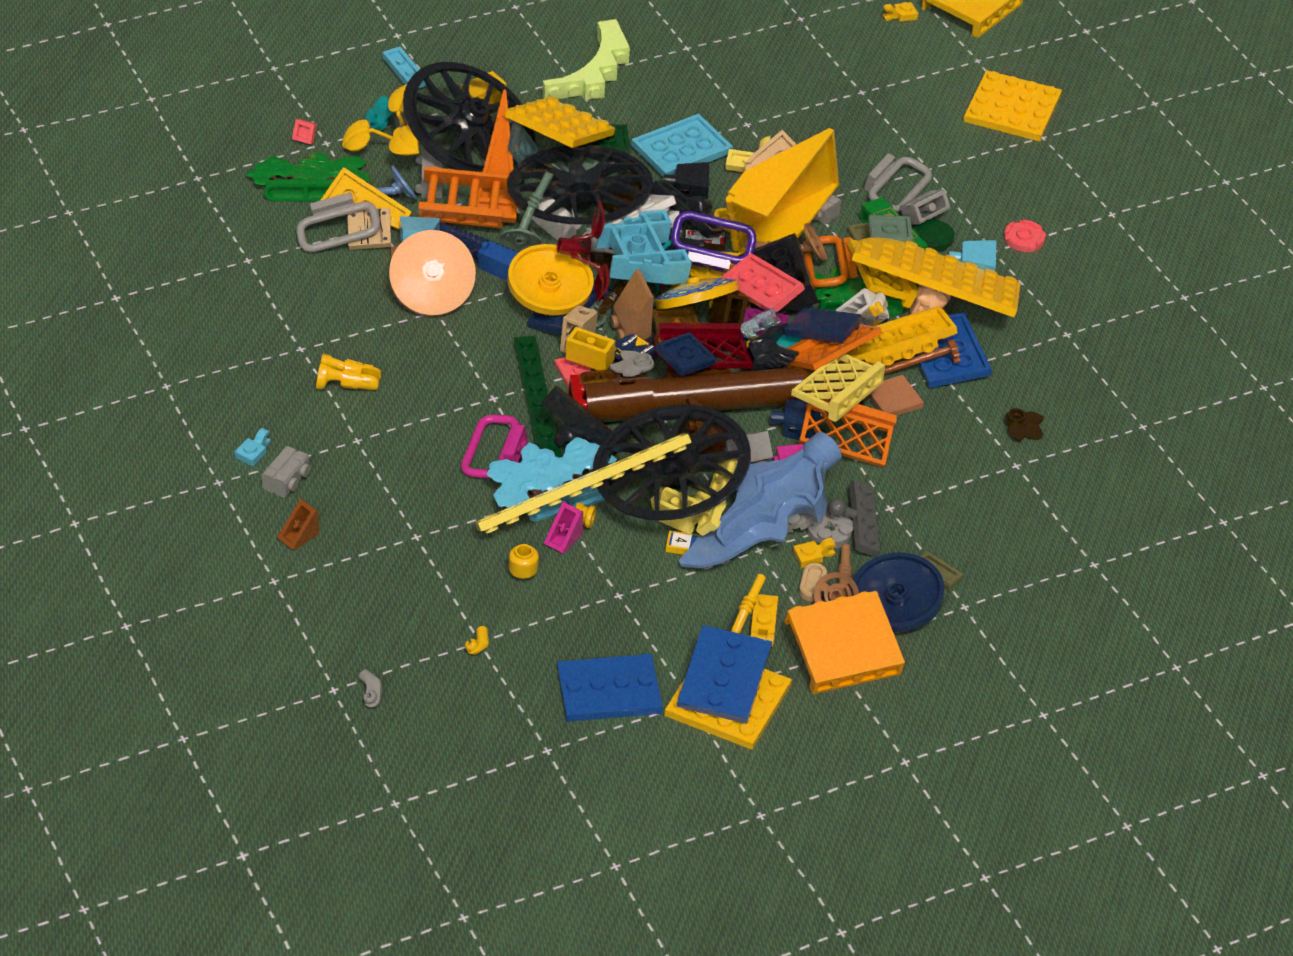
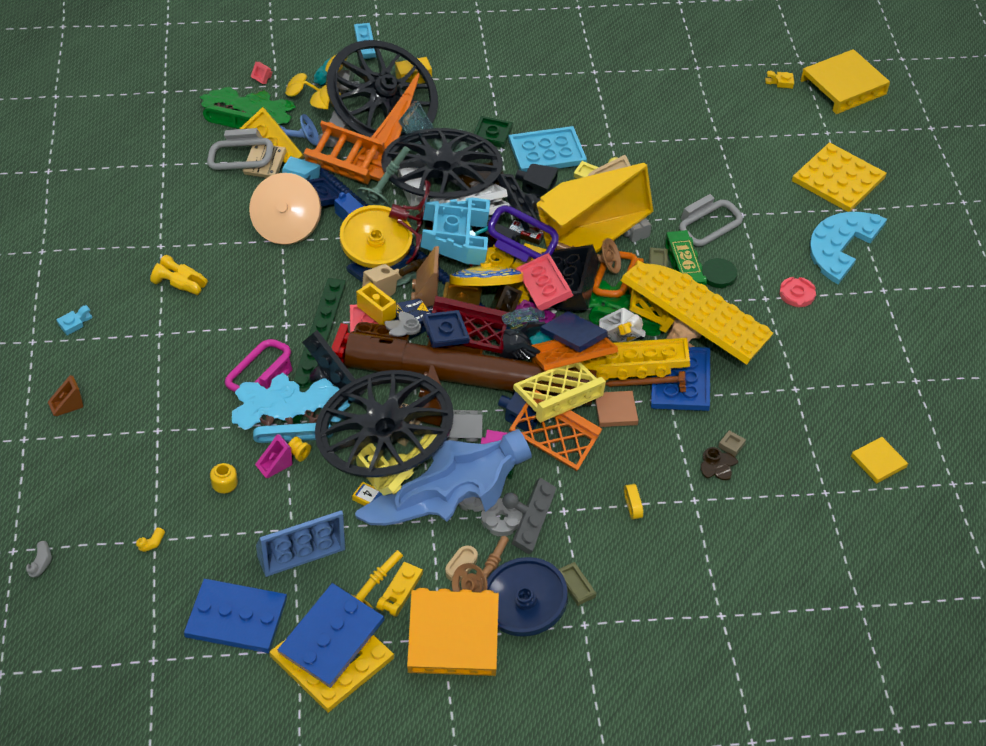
camera: 20 degrees right, 5 degrees up
(286, 472) = (84, 347): light grey brick -> none
(560, 121) = (453, 108): yellow plate -> none
(575, 486) = (292, 424): light yellow plate -> none
(602, 68) = (514, 73): yellowish green arch -> none
(645, 600) = (301, 543): none -> medium blue slope
(813, 553) = (472, 535): yellow plate -> none
(890, 227) = (678, 259): sand green tile -> none
(925, 206) = (720, 247): light grey brick -> none
(958, 480) = (633, 501): none -> yellow beam
(978, 252) = (747, 299): medium azure torso -> none
(1029, 400) = (732, 443): none -> dark tan plate
(1035, 171) = (835, 234): none -> medium azure plate
(1182, 381) = (879, 459): none -> yellow tile

